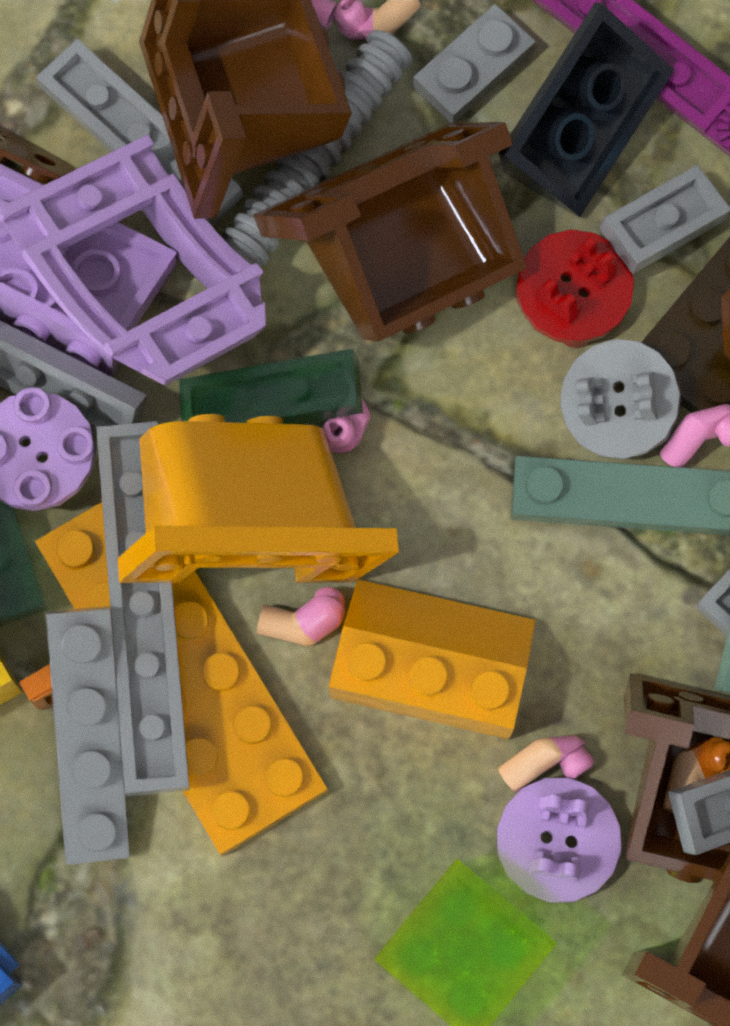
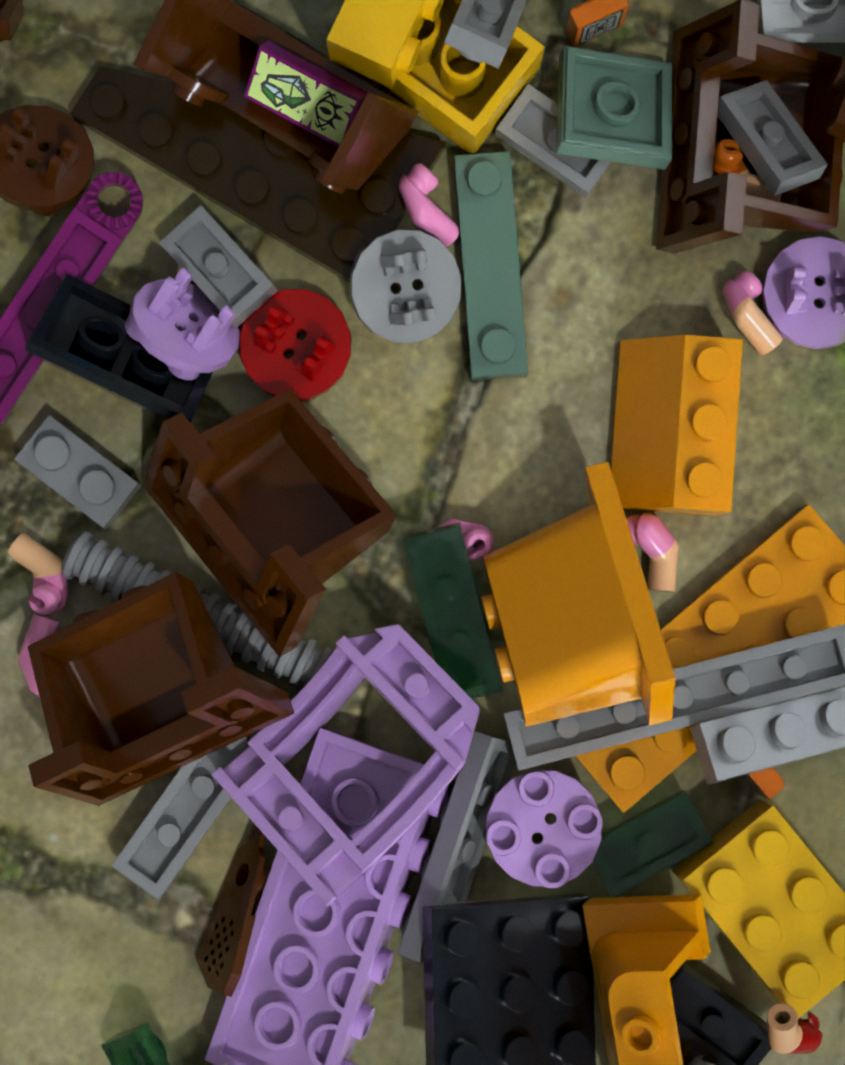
camera: 100 degrees left, 10 degrees up
(628, 160) = (182, 326): none -> lavender plate

